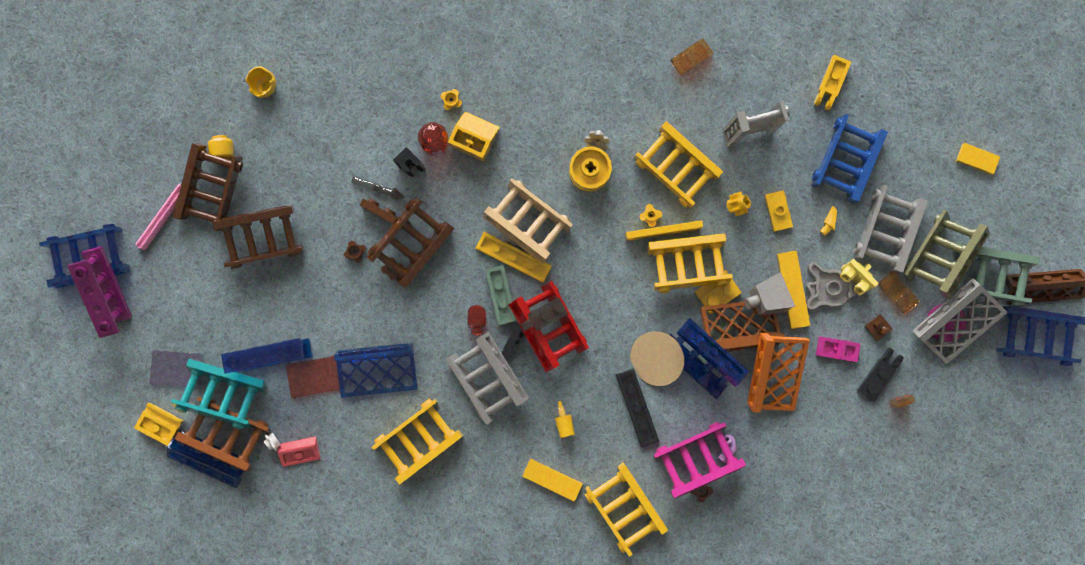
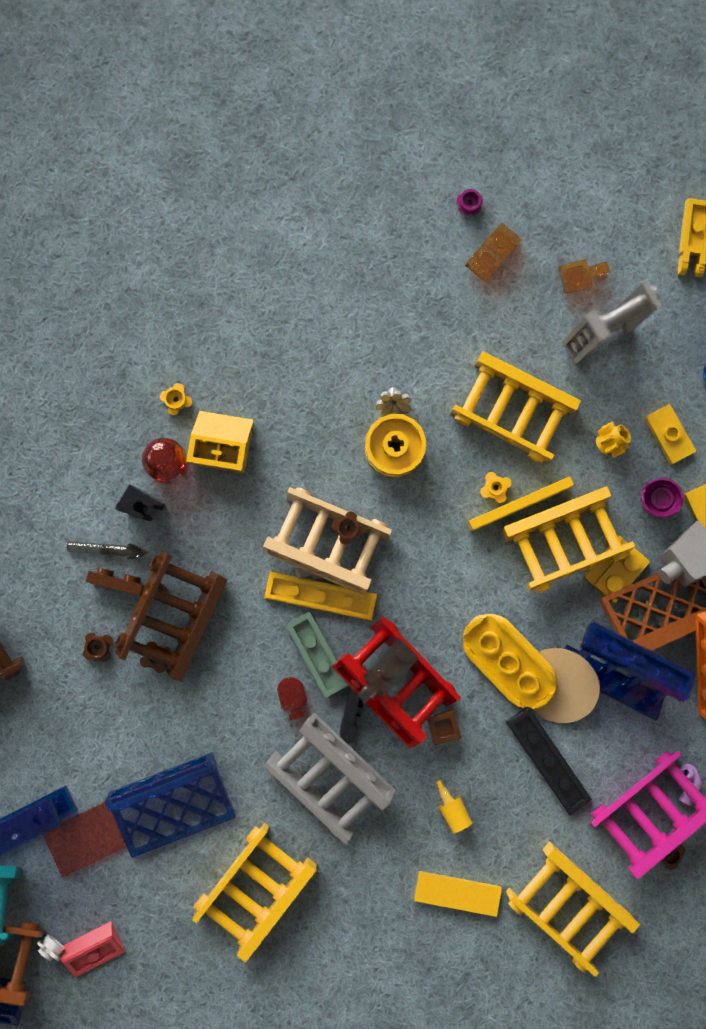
camera: 15 degrees left, 0 degrees up
(540, 219) = (340, 527): none -> reddish brown plate
(572, 365) = (443, 727): none -> reddish brown tile
(628, 333) = (509, 661): none -> yellow tile
(685, 14) = (473, 196): none -> magenta plate
(744, 87) = (579, 275): none -> clear orange plate
(765, 252) = (667, 496): none -> magenta hair

